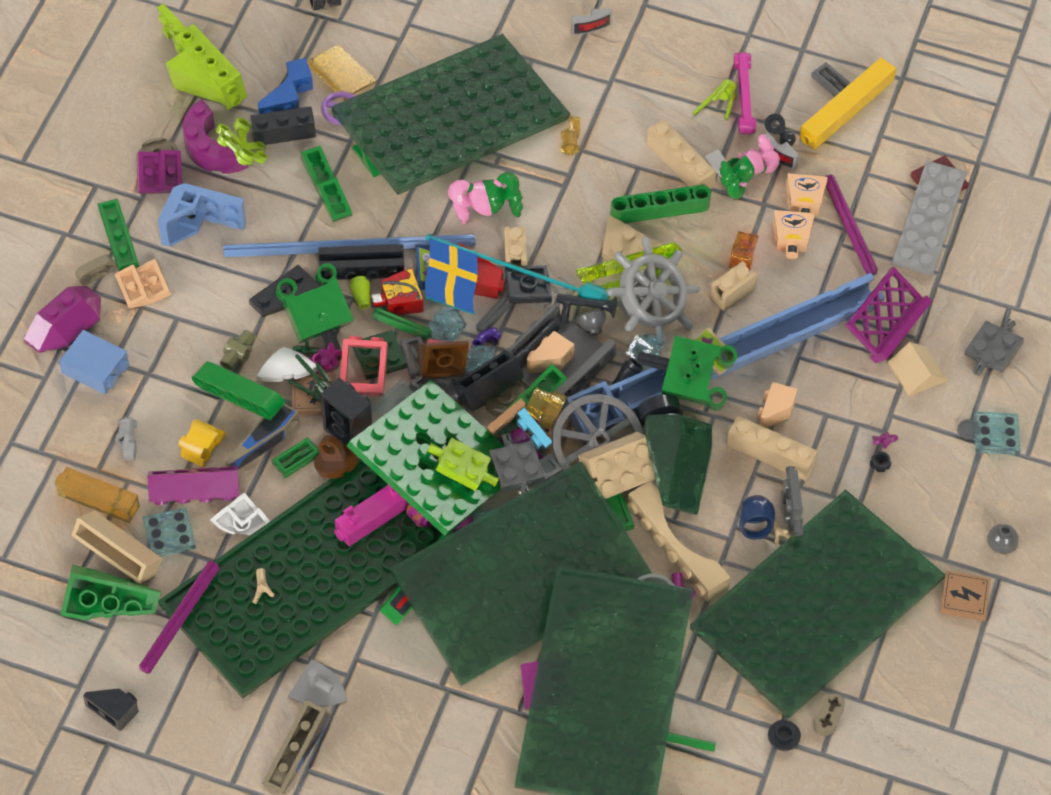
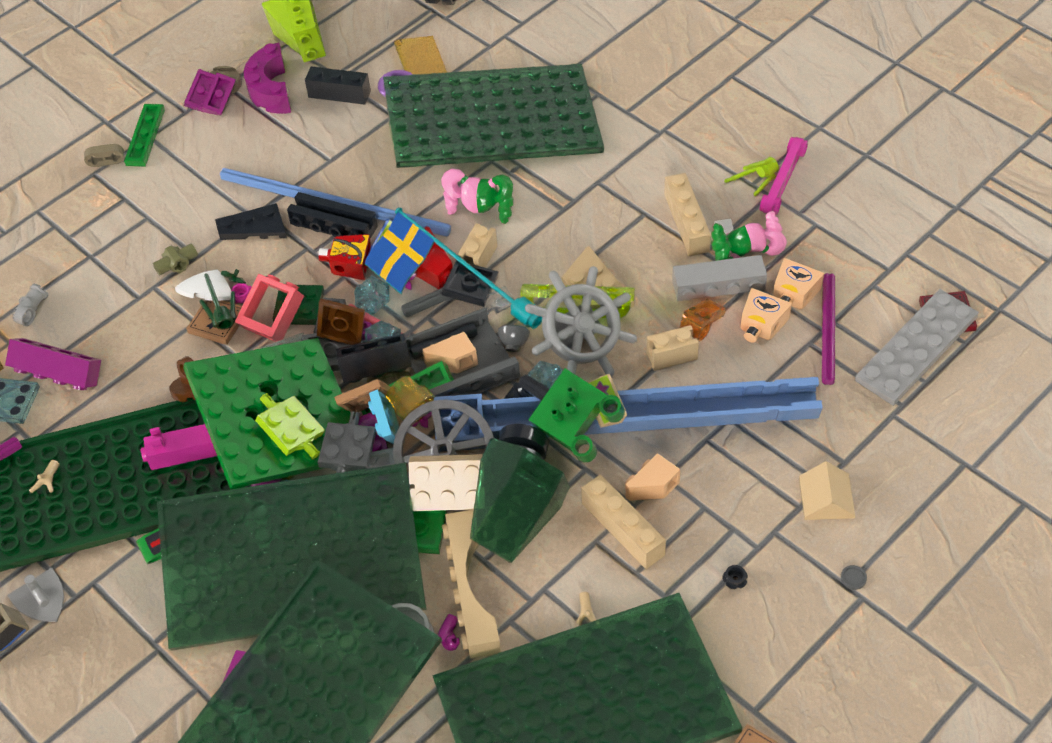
camera: 30 degrees right, 5 degrees down
(64, 319) = (51, 185): magenta wedge -> none
(94, 362) = (48, 230): medium blue brick -> none
(143, 284) = (136, 180): light nougat slope -> none
(200, 442) = (90, 326): yellow cylinder -> none
(203, 205) = (196, 128): medium blue bracket -> none
(238, 390) = (146, 292): green beam -> none
(240, 517) = (77, 407): white brick -> none
(242, 149) = (280, 94): lime plant -> none
(265, 436) = (147, 341): slope -> none
(285, 96) = (374, 52): blue arch -> none
(298, 460) = (162, 375): green tile -> none
(318, 310) = (258, 244): green piece -> none
(325, 183) = (346, 143): green slope -> none
(329, 355) = (244, 286): magenta plant -> none
(345, 411) = (215, 333): black brick -> none
(361, 291) = (316, 239): lime cone -> none
(402, 323) = (335, 282): green axle -> none
(482, 337) = (403, 318): dark purple arm -> none
(568, 300) = (497, 309): black piece -> none
(570, 136) = (592, 165): clear yellow connector -> none
(596, 21) = (674, 76): slope -> none
(661, 204) = (642, 249): green beam -> none
(738, 209) = (719, 278): none -> light grey brick
(756, 510) = (569, 579): dark blue helmet -> none
(785, 136) = (806, 228): black plate -> none
(788, 156) = (795, 242): light grey slope -> none
(792, 498) = (611, 584): dark grey plate -> none
(829, 82) = (877, 191): dark grey tile -> none
(847, 103) = (884, 213): yellow brick -> none
(885, 439) = (752, 554): magenta plant -> none
(897, 330) = (821, 446): magenta fence -> none
(994, 346) = (925, 499): dark grey plate -> none
(996, 433) = (883, 592): clear light blue tile -> none
(1003, 538) = (833, 712): dark grey brick -> none

